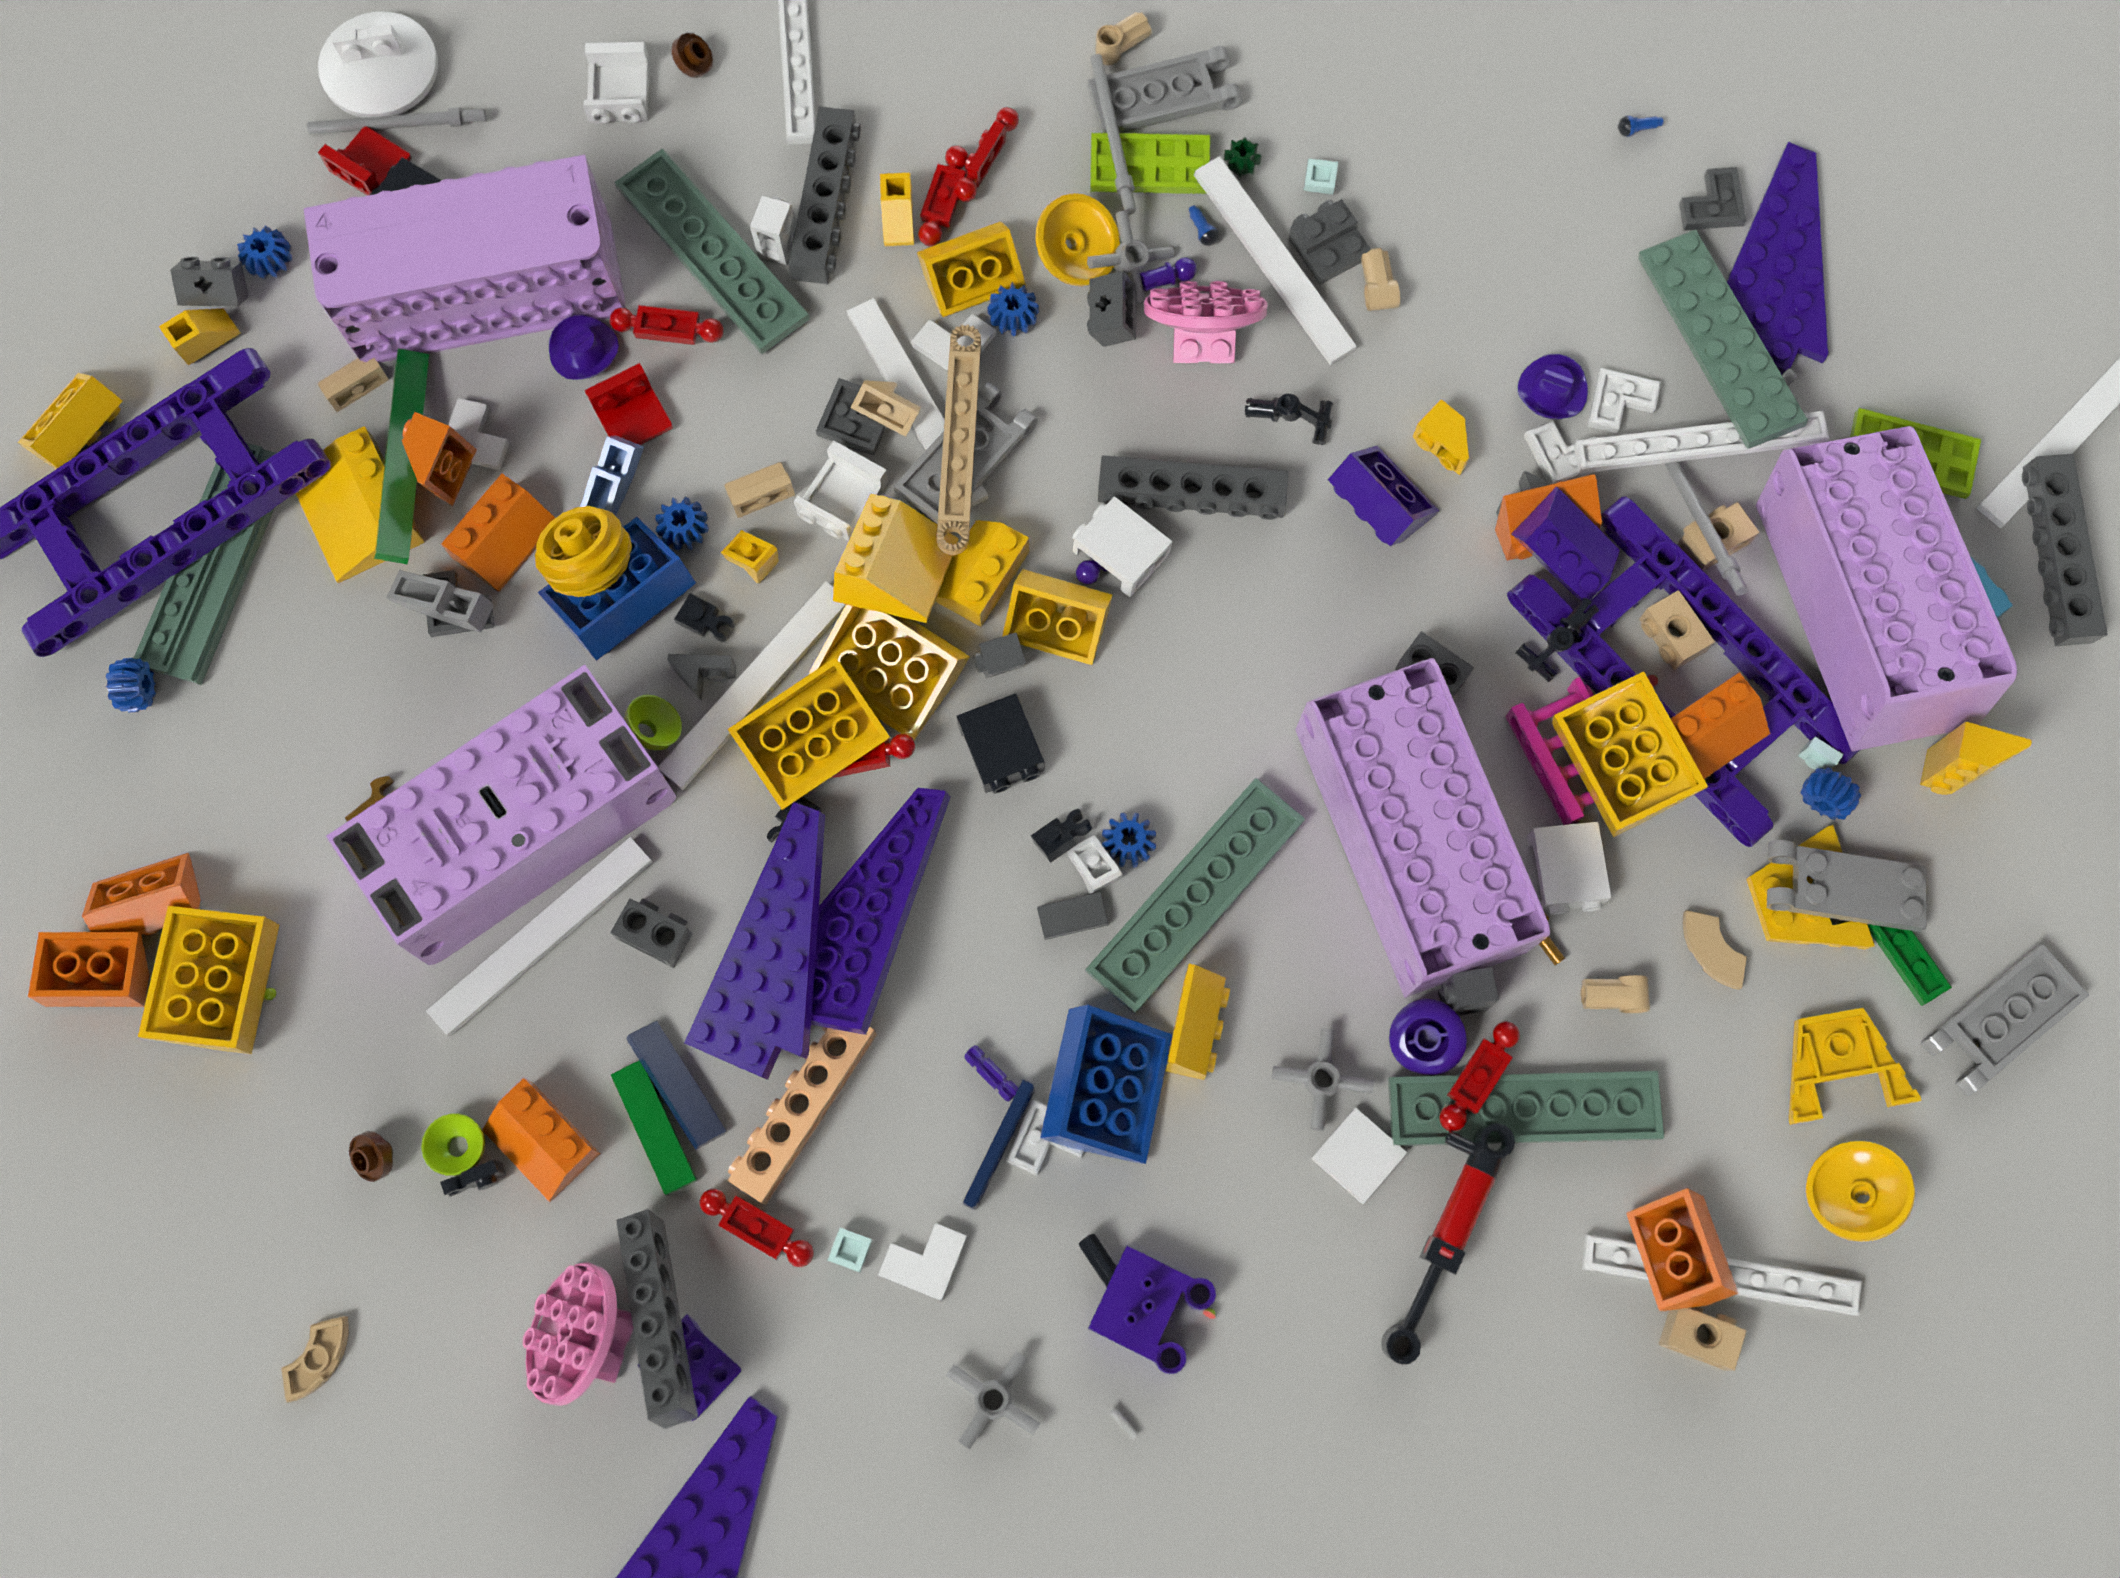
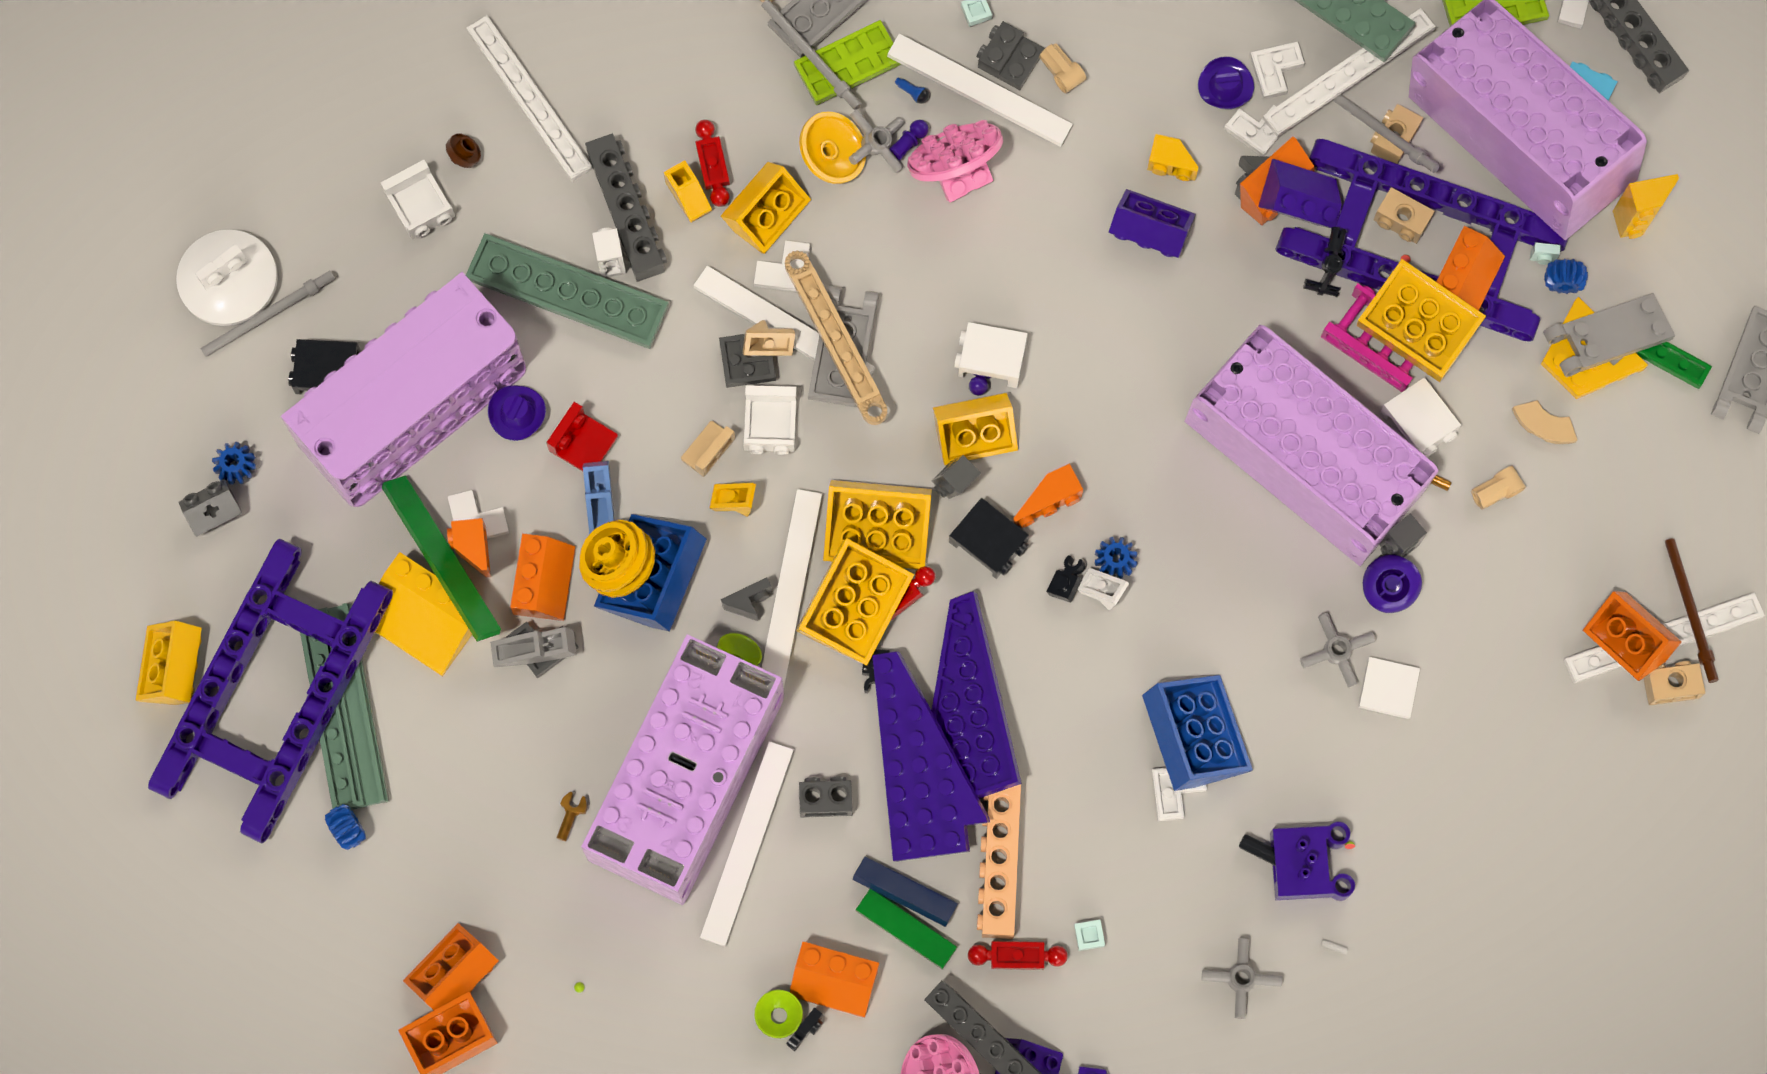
camera: 30 degrees left, 0 degrees up
(199, 332) = (225, 548): yellow slope -> none
(209, 979) = (536, 997): yellow slope -> none
(352, 382) = (359, 525): tan panel -> none
(364, 160) = (266, 355): red bracket -> none
(371, 1156) = (725, 1053): reddish brown plate -> none
(666, 325) = (568, 363): red plate -> none
(679, 513) = (662, 495): blue gear -> none
(701, 616) = (720, 561): black plate -> none
(892, 561) = (843, 449): yellow slope -> none
(925, 1272) = (1149, 921): white tile -> none
(983, 570) = (903, 432): yellow slope -> none
(989, 147) = (725, 83): red plate -> none
(991, 1073) = (1114, 767): dark purple axle -> none
(999, 1145) = (1148, 811): dark blue tile -> none
(1002, 309) = (804, 225): blue gear -> none
(1072, 916) = (1106, 631): dark grey tile -> none
(1102, 729) = (1054, 491): none -> orange slope
(1112, 309) = (896, 191): dark grey brick -> none
(1195, 895) = (1182, 572): sand green plate -> none
(1197, 1023) = (1233, 657): yellow slope -> none
(1206, 477) = (1069, 256): dark grey brick -> none
(1242, 157) = (918, 22): dark green gear -> none
(1291, 409) = (1055, 195): black pin -> none
(1448, 662) = (1251, 320): dark grey brick -> none
(1454, 1227) = (1479, 716): black piece -> none
(1479, 1076) = (1440, 591): red plate -> none
(1534, 1108) = (1480, 597): sand green plate -> none
(1759, 1325) = (1705, 655): none -> reddish brown bar
(1837, 1049) = (1660, 447): yellow wing -> none
(1854, 1171) = (1710, 526): yellow dish -> none

